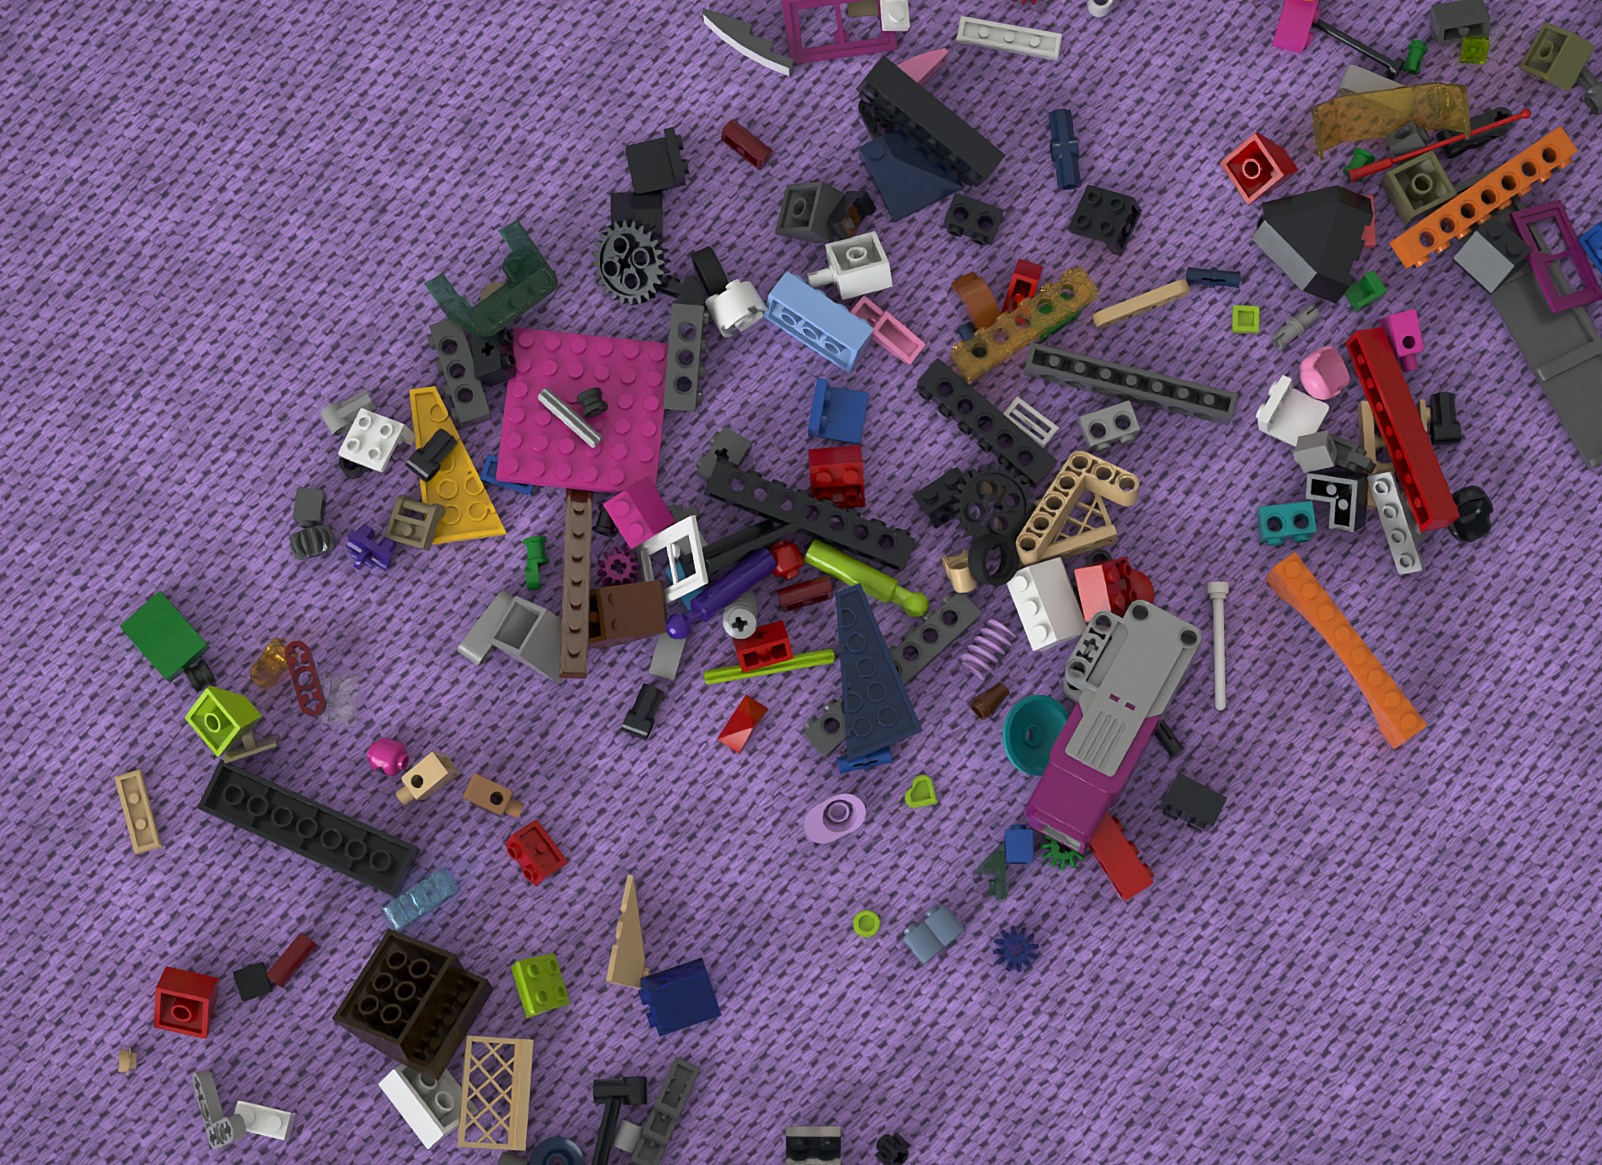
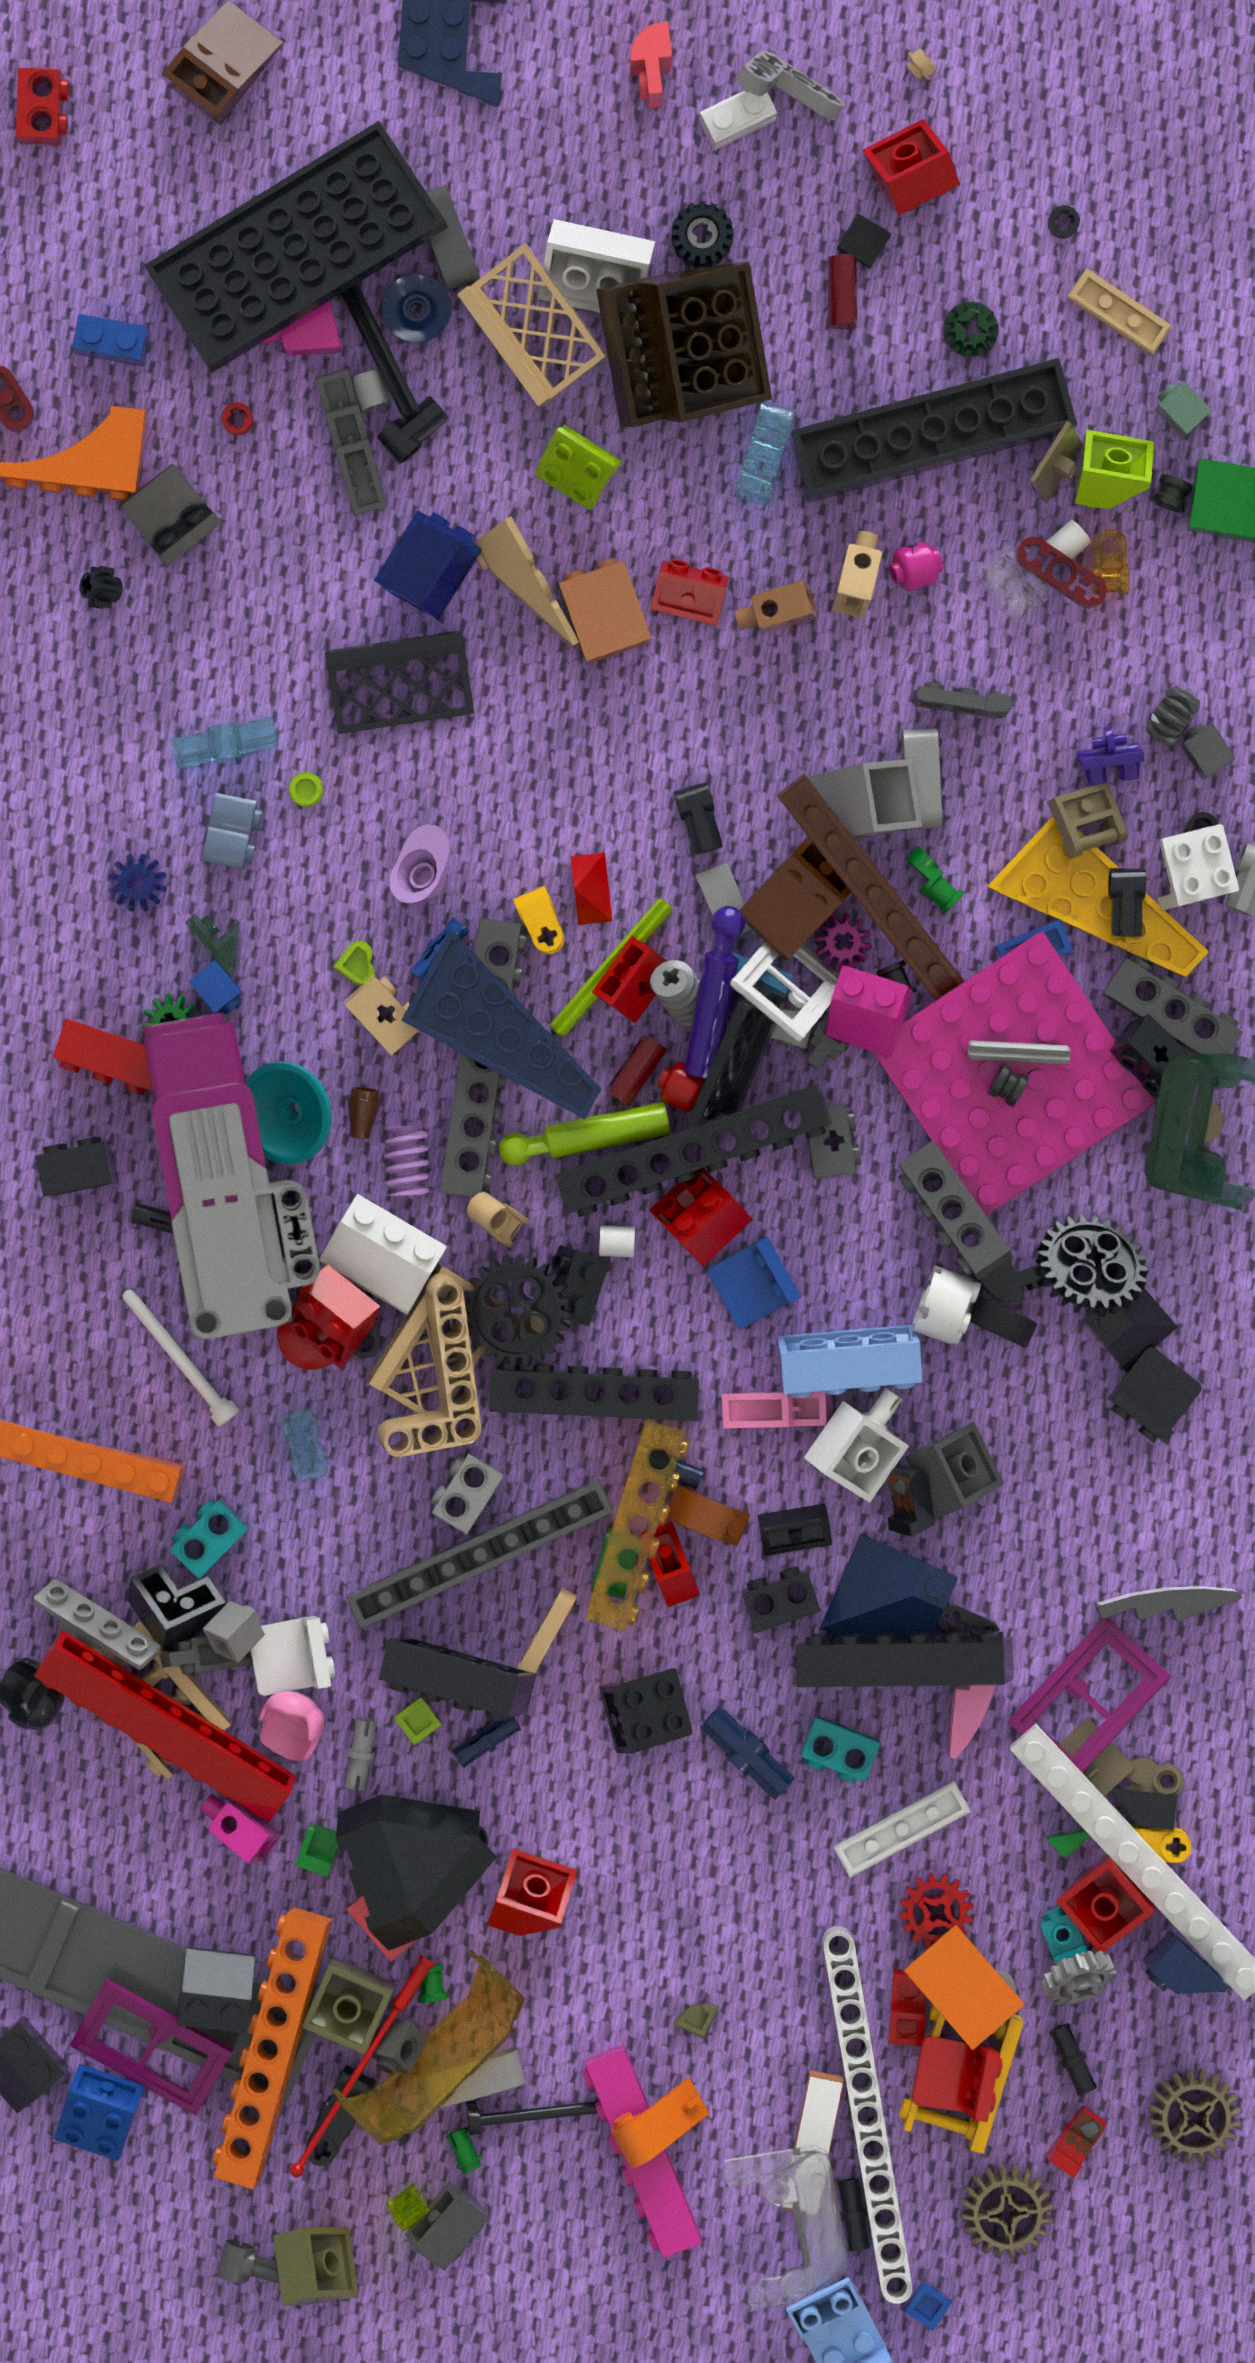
camera: 140 degrees right, 10 degrees up
(124, 902) = (1072, 228): none -> black bush
(150, 721) = (1182, 408): none -> sand green brick
(246, 877) = (955, 333): none -> dark green gear
(284, 697) = (1070, 539): none -> white beam
(332, 1062) = (686, 243): none -> black bush
(427, 653) = (964, 701): none -> dark grey hinge
(596, 883) = (604, 610): none -> nougat brick
(742, 962) = (392, 652): none -> black fence
(746, 144) = (1079, 1491): dark red brick -> none
(788, 732) = (539, 915): none -> yellow piece
(893, 991) = (225, 742): none -> clear light blue piece
(899, 502) = (617, 1241): none -> white beam
(931, 254) = (794, 1529): none -> black slope
(935, 762) = (364, 1006): none -> tan brick
(978, 555) = (450, 1254): black tyre -> none
(1003, 111) = (842, 1741): none -> teal brick
(1047, 436) = (521, 1420): white tile -> none
(1183, 532) = (308, 1454): none -> clear light blue brick
(1202, 319) = (457, 1677): none -> black brick
(1217, 25) = (697, 2018): none -> olive tile
(1444, 427) = (127, 1771): black piece -> none

